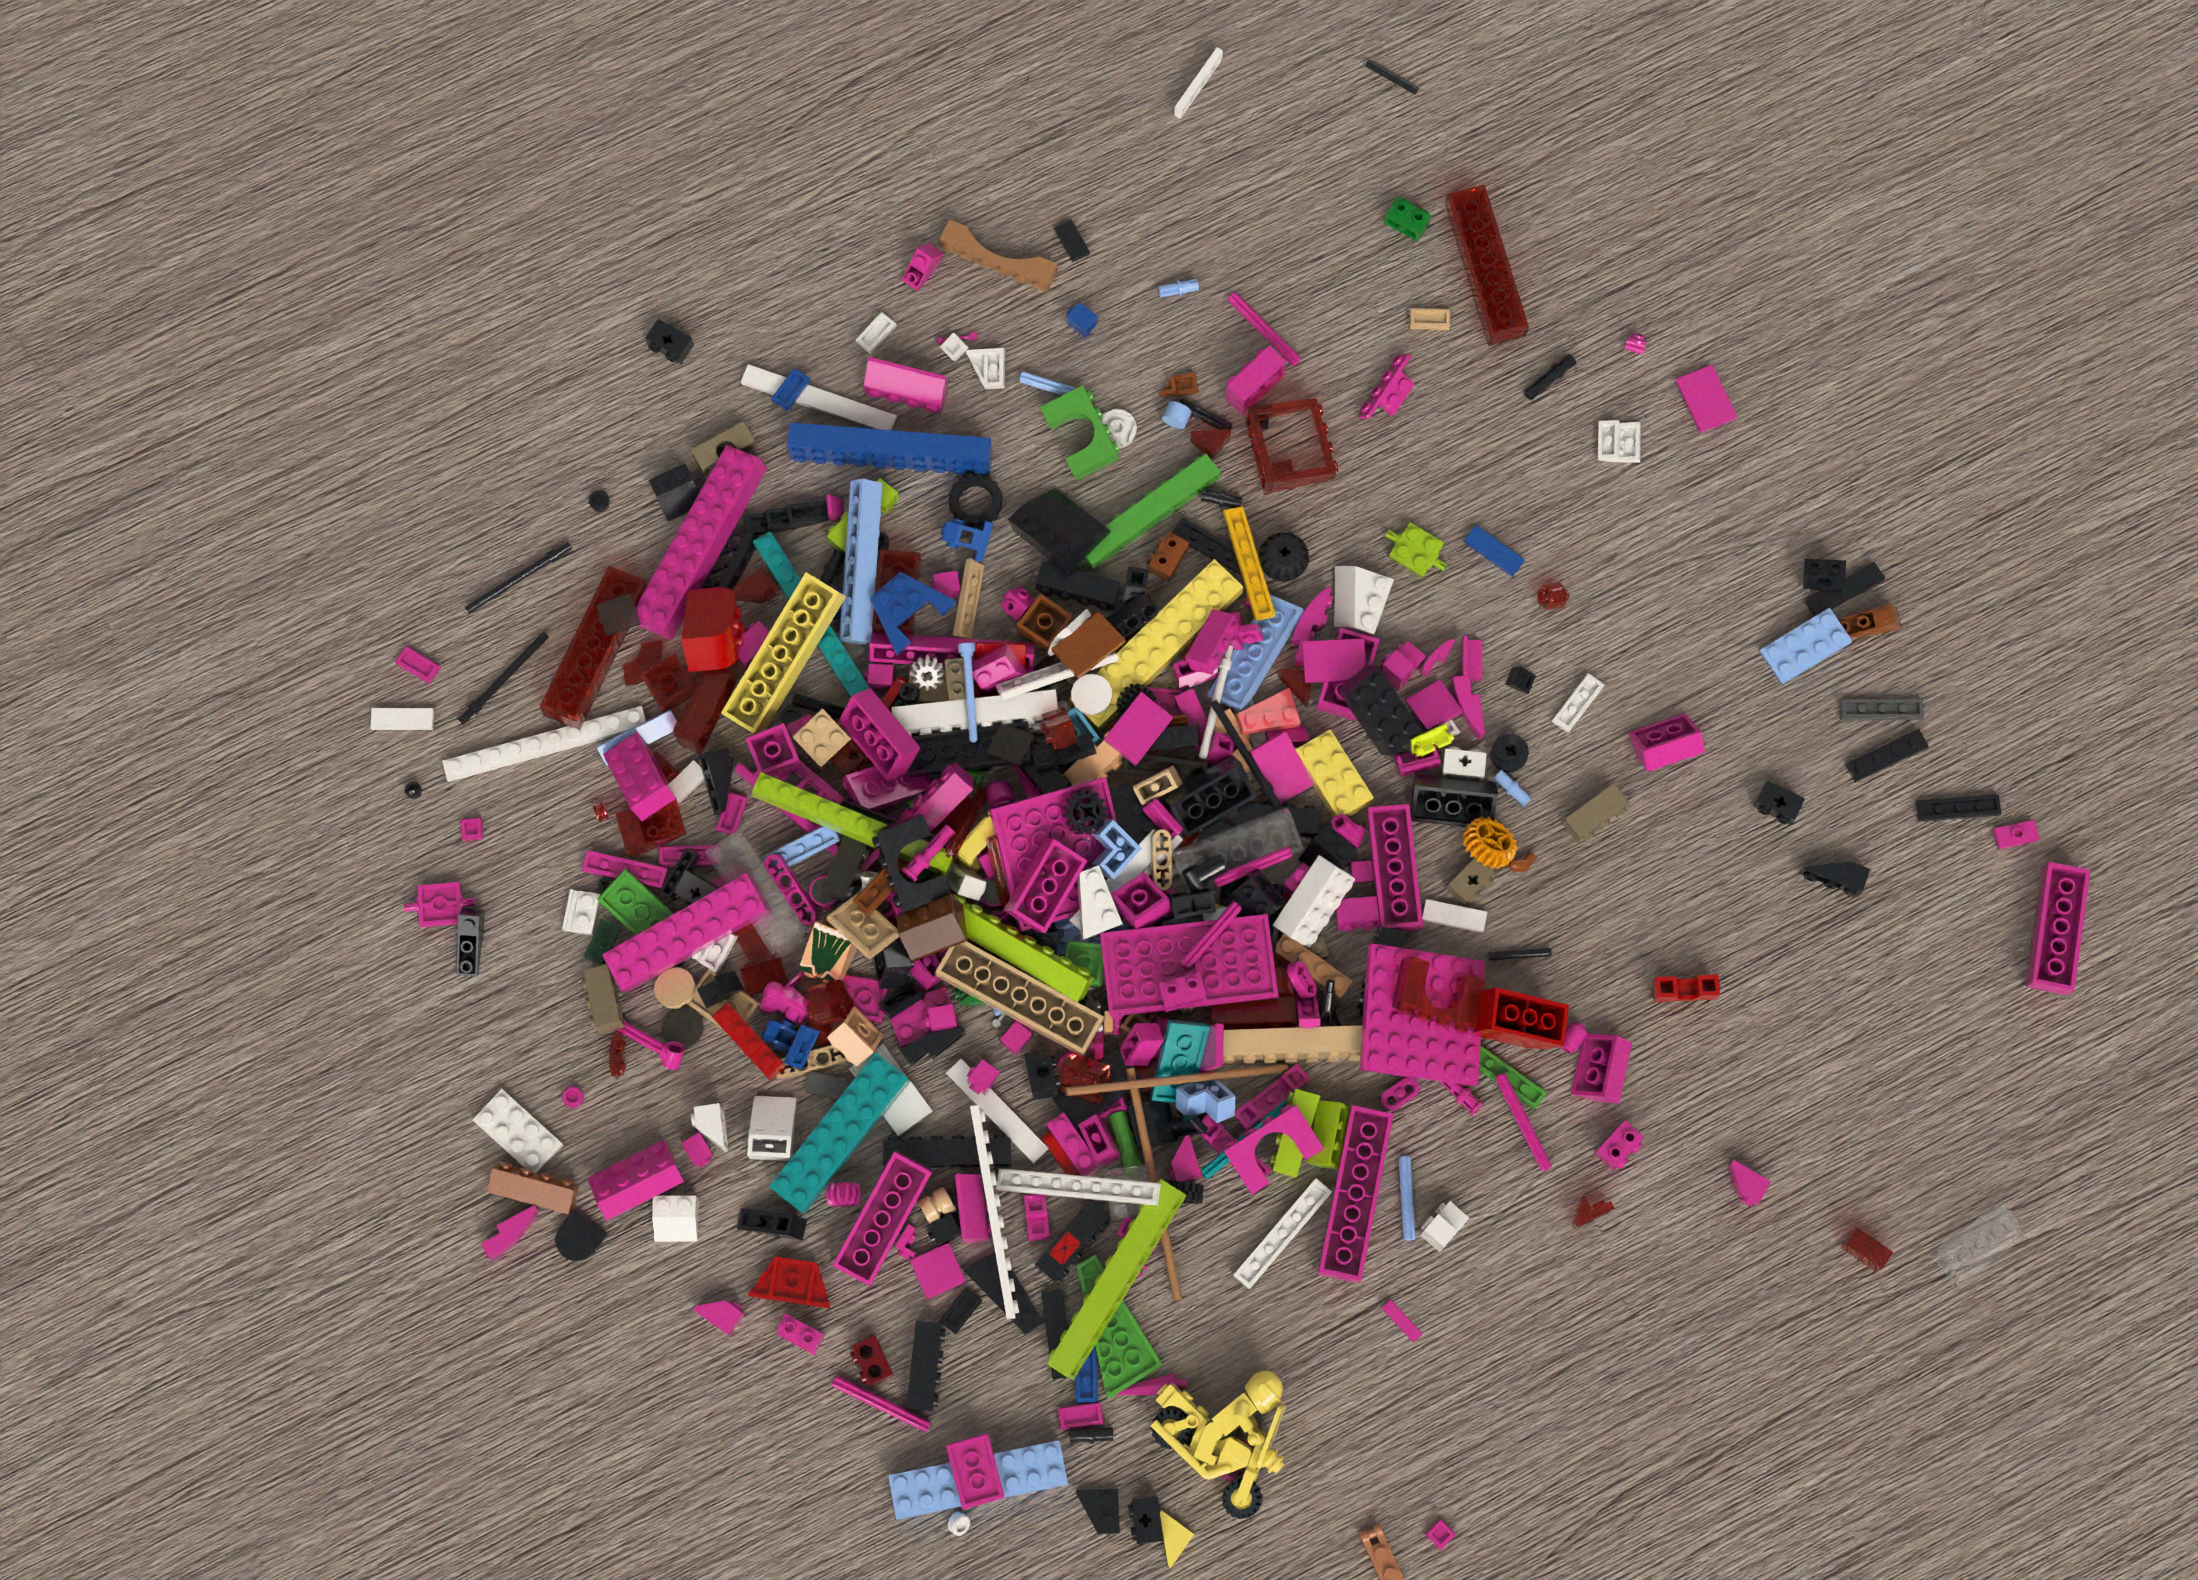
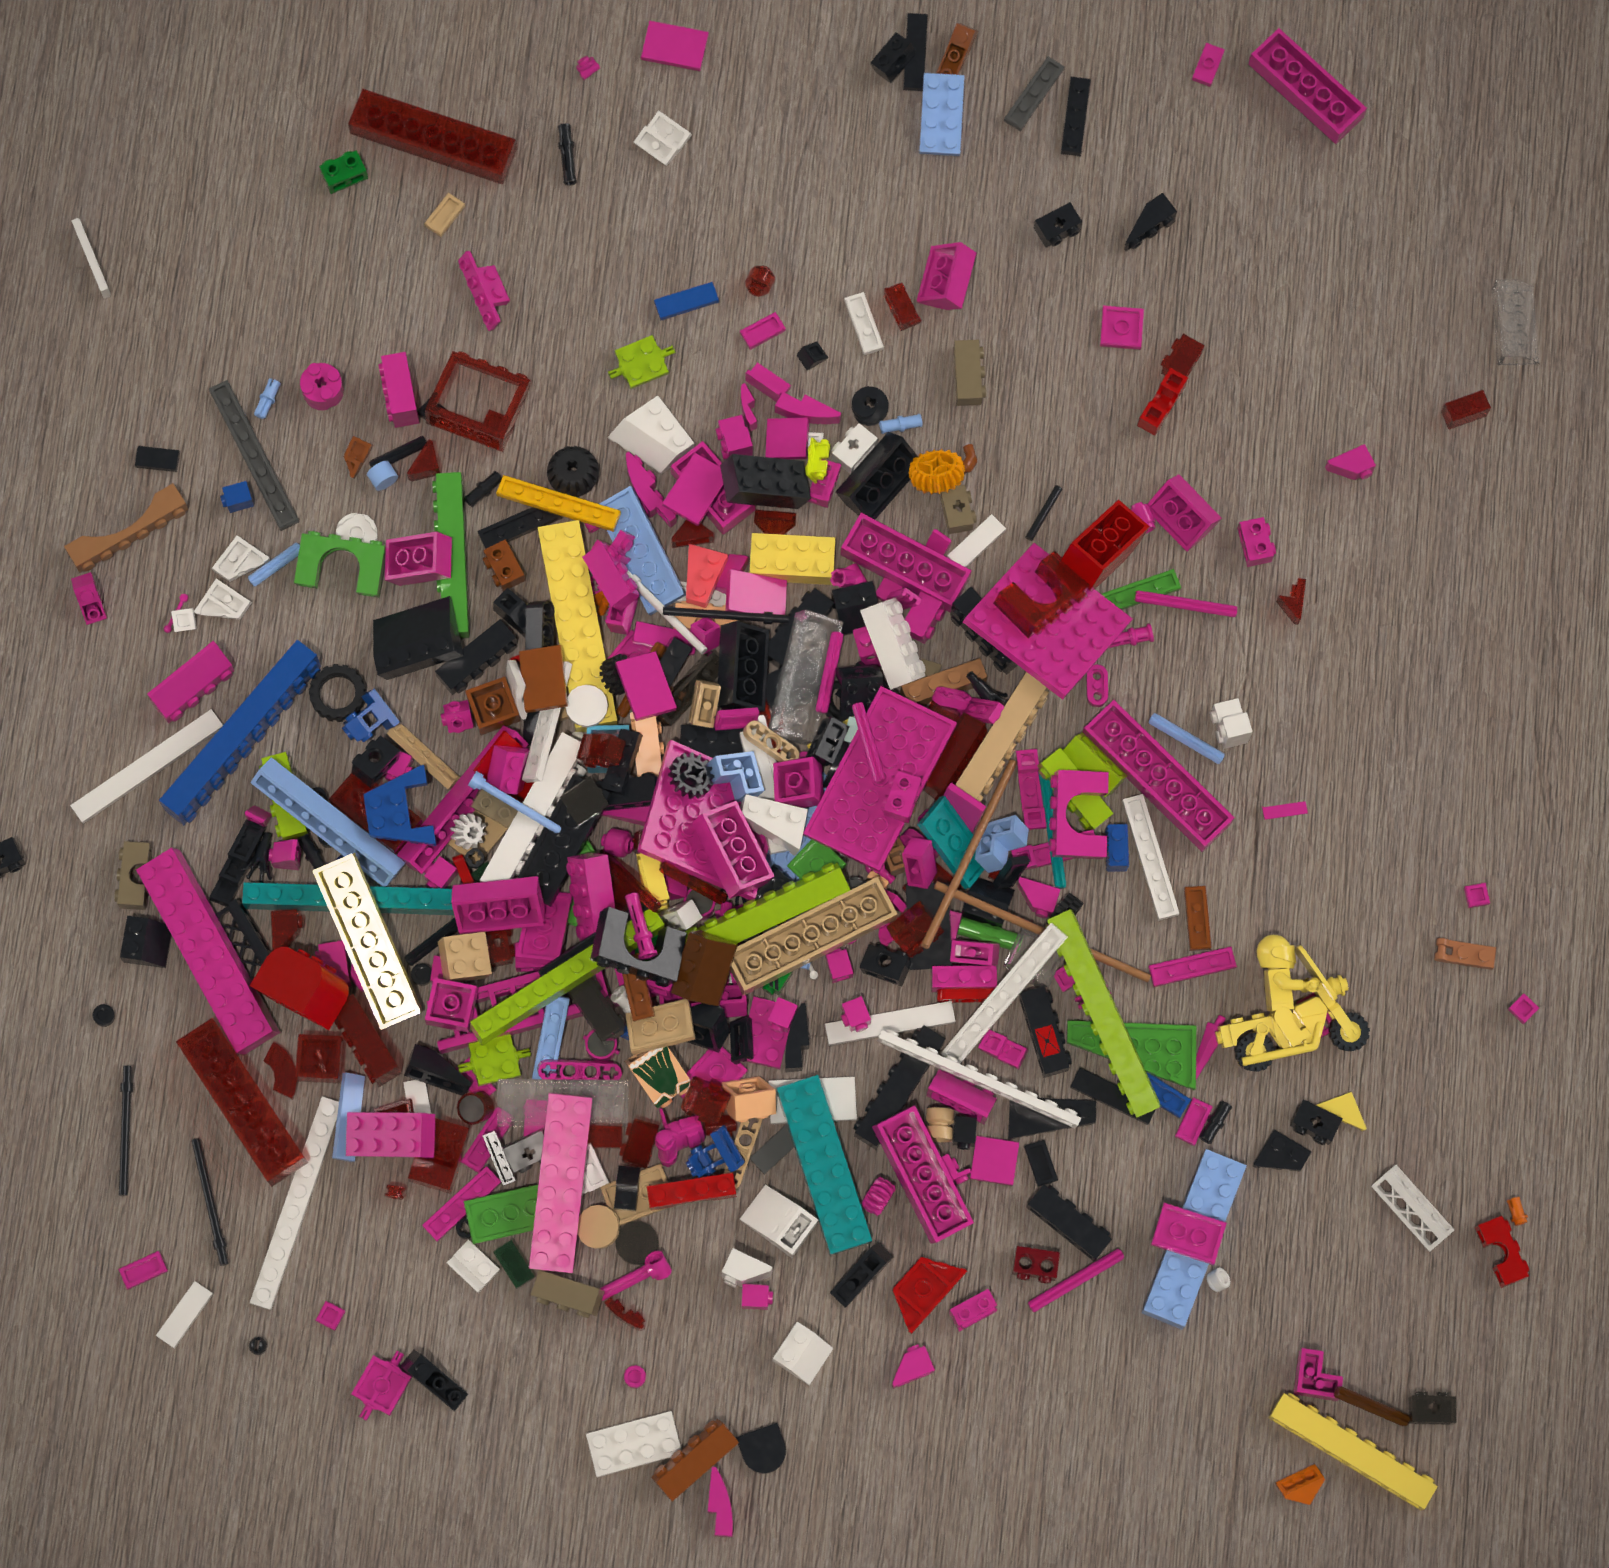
camera: 60 degrees left, 0 degrees up
(618, 614) = (229, 1060): clear smoke piece -> none
(635, 1180) = (748, 1365): dark pink brick -> none
(708, 828) = (475, 1107): none -> piece
(756, 819) = (494, 1060): none -> lime plate
(791, 389) = (121, 783): blue tile -> none
(801, 532) = (260, 858): none -> black piece
(816, 549) = (286, 855): none -> dark pink slope
(876, 333) = (120, 678): white tile -> none
(922, 567) = (369, 771): none -> black brick
(1031, 355) = (239, 559): none -> white wing
(1124, 486) = (418, 558): none -> dark pink brick
(1125, 310) = (253, 455): none -> dark grey tile
(1199, 875) = (808, 719): black piece -> none
(1212, 1330) = (1192, 966): none -> dark pink tile
(1213, 311) = (326, 396): none -> dark pink brick
(1257, 1307) = (1197, 918): none -> dark orange tile
(1264, 329) = (355, 353): dark pink axle -> none
(1270, 1200) = (1117, 848): none -> blue brick
(1355, 742) = (774, 521): none -> clear red slope
(1361, 886) = (909, 598): none -> dark pink tile
(1392, 77) = (204, 98): black bar -> none
(1431, 885) = (938, 542): none -> dark pink slope
(1513, 627) = (762, 330): none -> dark pink tile
(1614, 723) = (901, 306): none -> clear red hinge
(1728, 913) = (1121, 327): none -> dark pink tile
(1738, 980) = (1184, 355): none -> clear red brick
(1958, 808) = (1156, 92): black tile -> none

